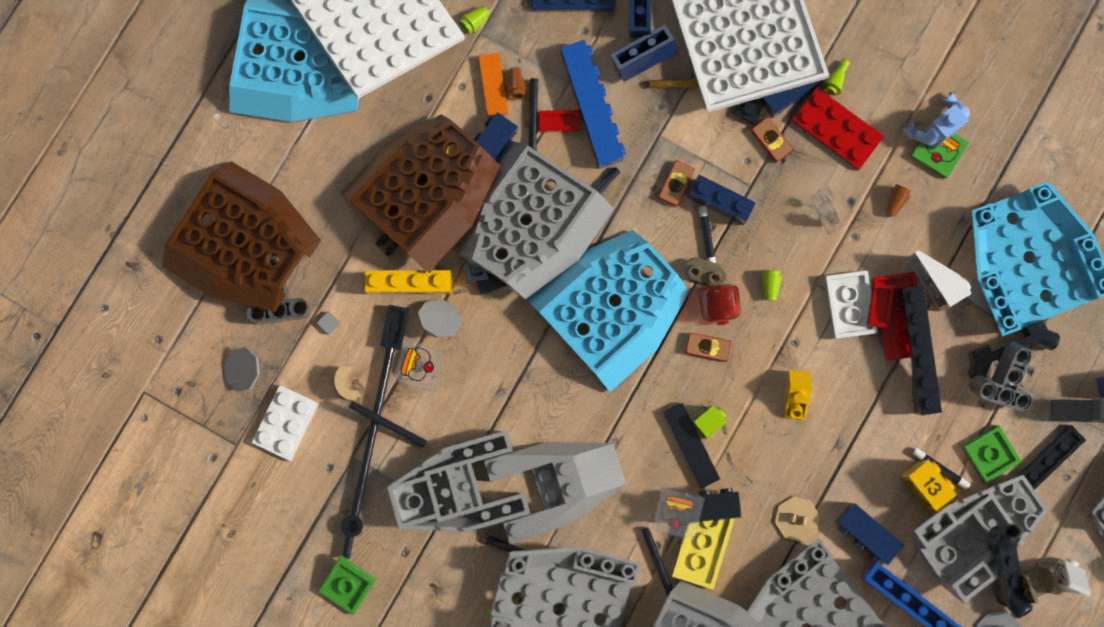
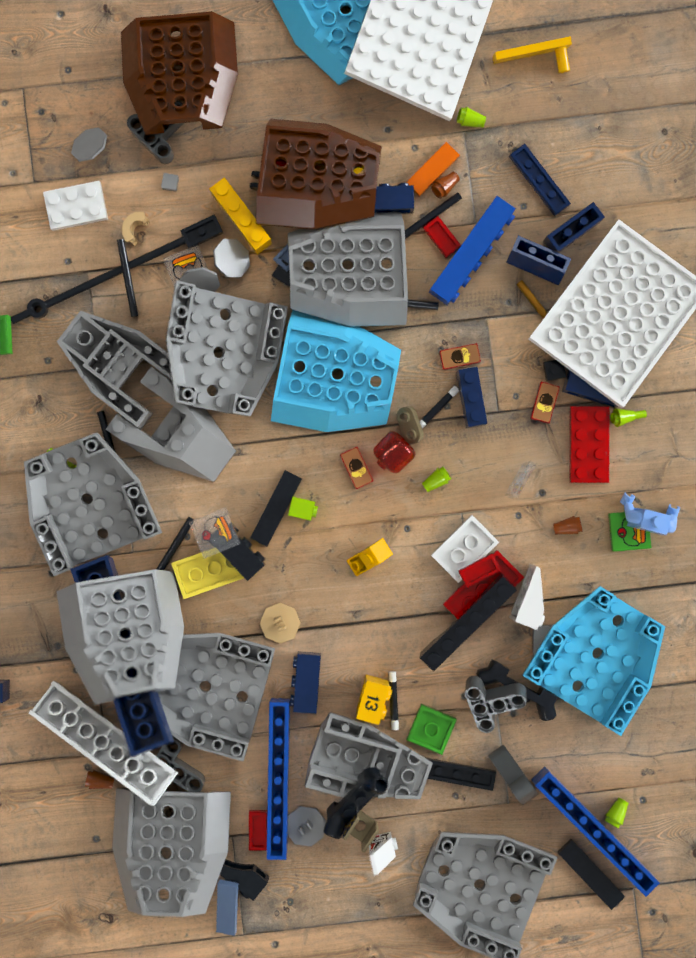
camera: 50 degrees right, 5 degrees up
(441, 362) = (202, 278): none -> light grey piece
(522, 358) = (248, 342): none -> light grey wedge

